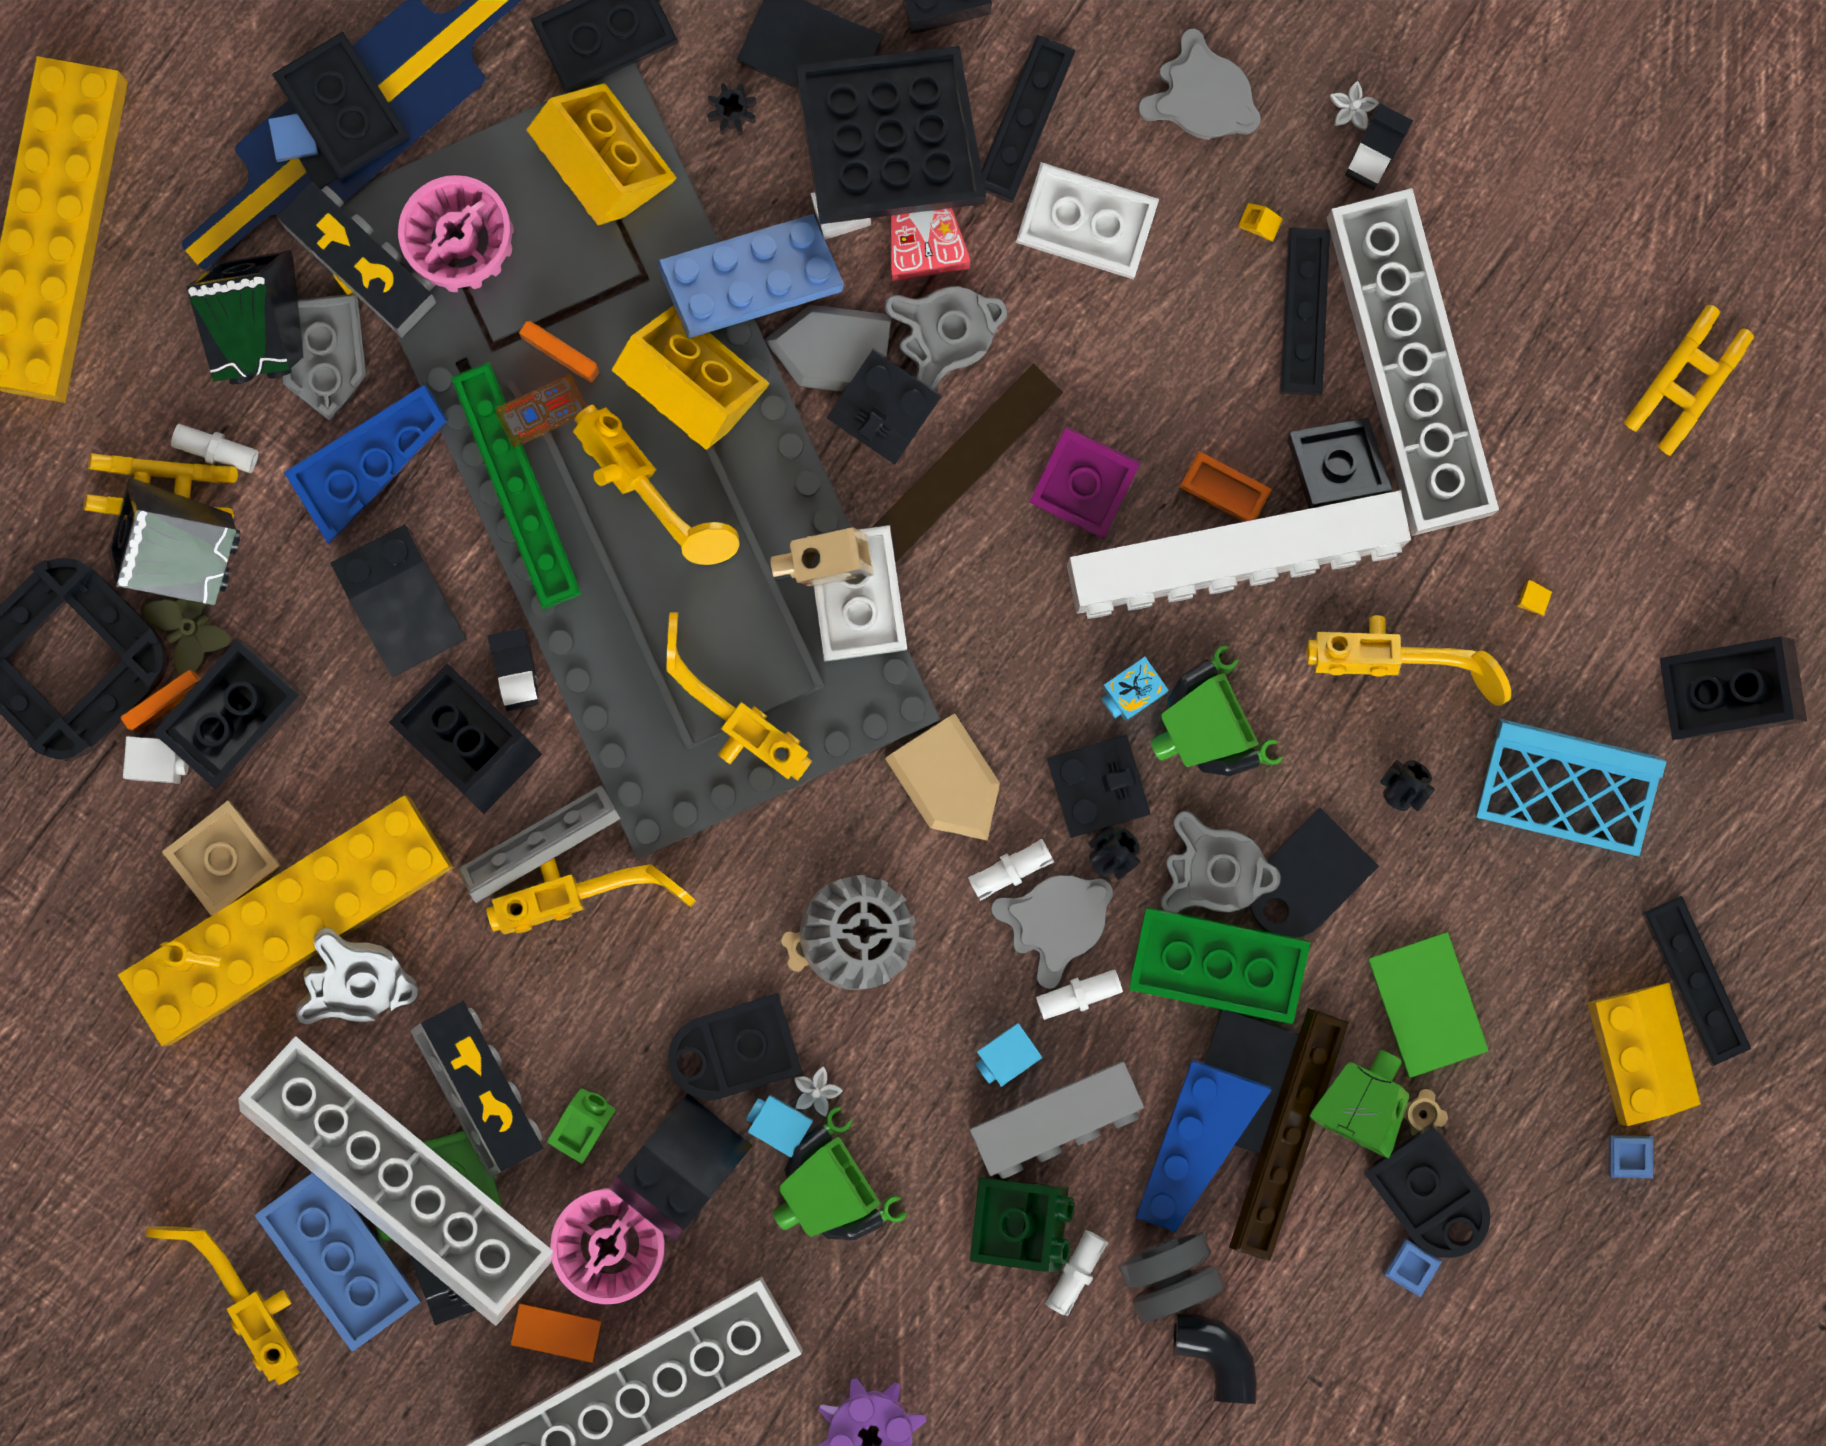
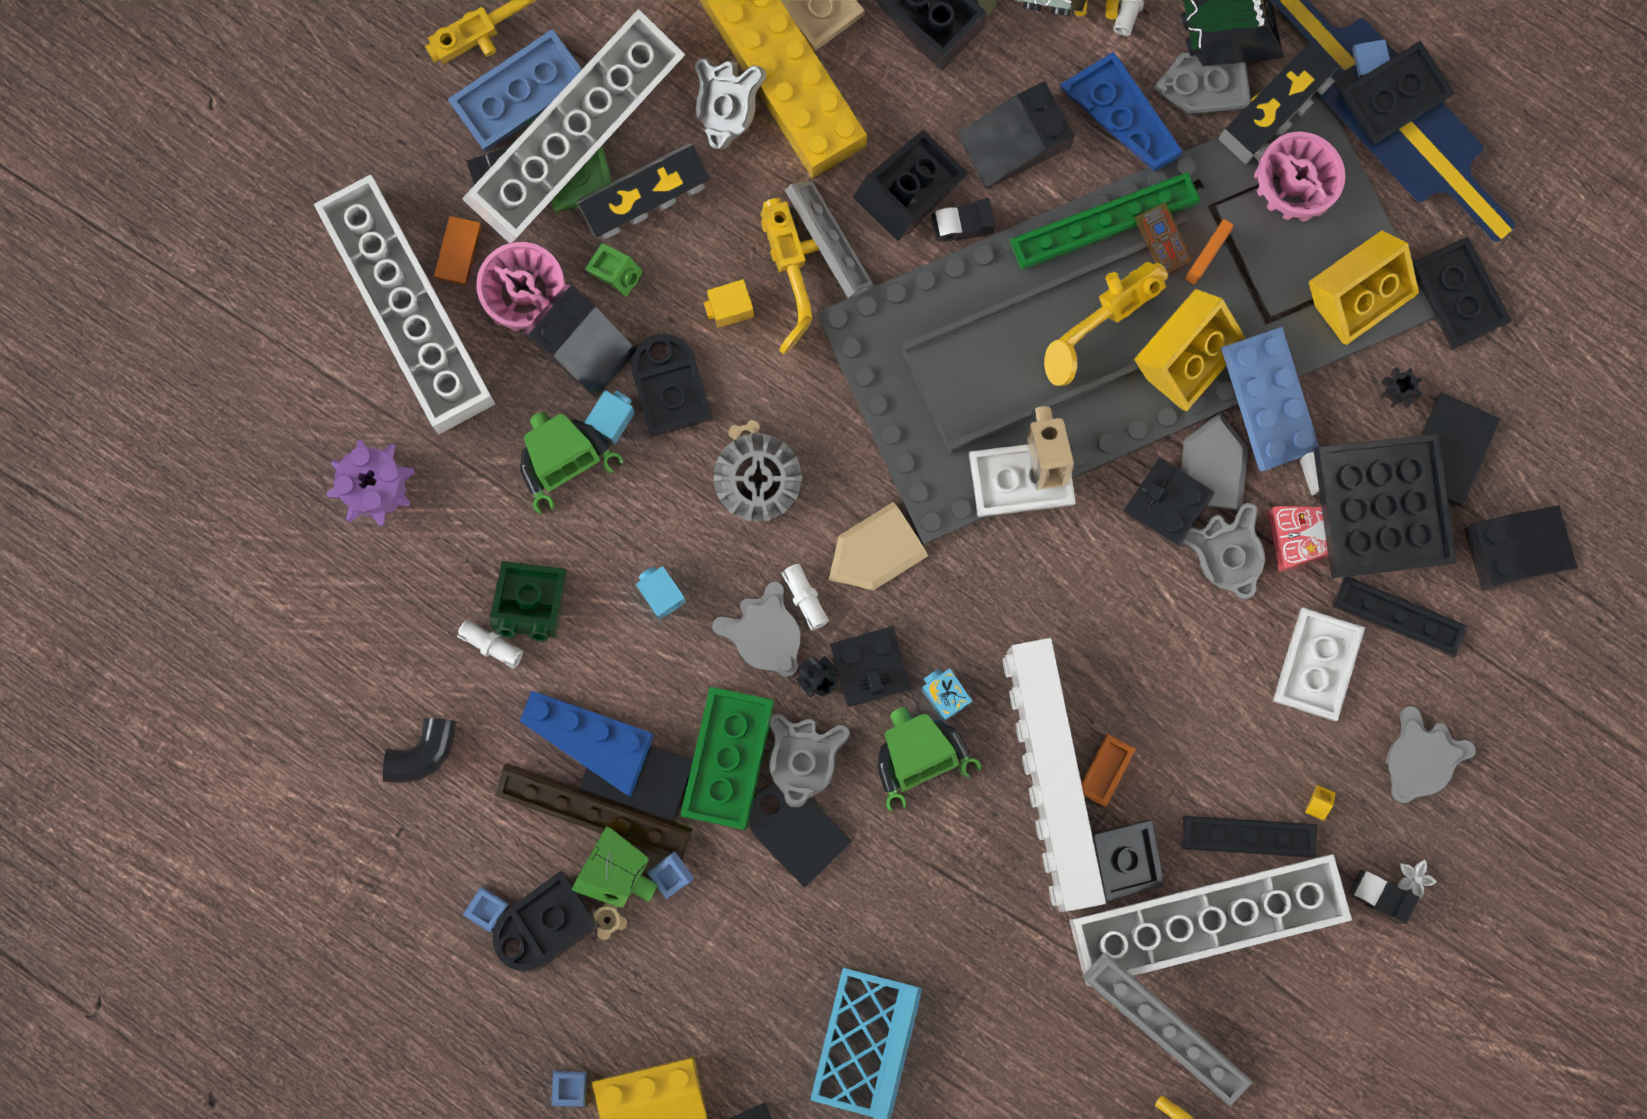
camera: 90 degrees right, 5 degrees down
(628, 974) = (729, 304): none -> yellow brick
(742, 723) = (919, 387): yellow piece -> none
(816, 1091) = (636, 446): white plant -> none
(969, 459) = (1127, 568): dark brown tile -> none
(1056, 1119) = (610, 629): light grey brick -> none
(1079, 994) = (706, 648): white pin -> none
(1084, 482) = (1110, 657): magenta hinge -> none
(1169, 1271) = (488, 712): dark grey wheel -> none
(1366, 1035) = (670, 875): none -> medium blue tile
(1382, 655) = (973, 891): yellow piece -> none
(1407, 785) = (868, 910): black gear -> none
(1428, 1005) = (693, 925): bright green tile -> none
(1534, 598) = (1019, 1019): yellow piece -> none
(1546, 416) = (1167, 1029): none -> light grey tile

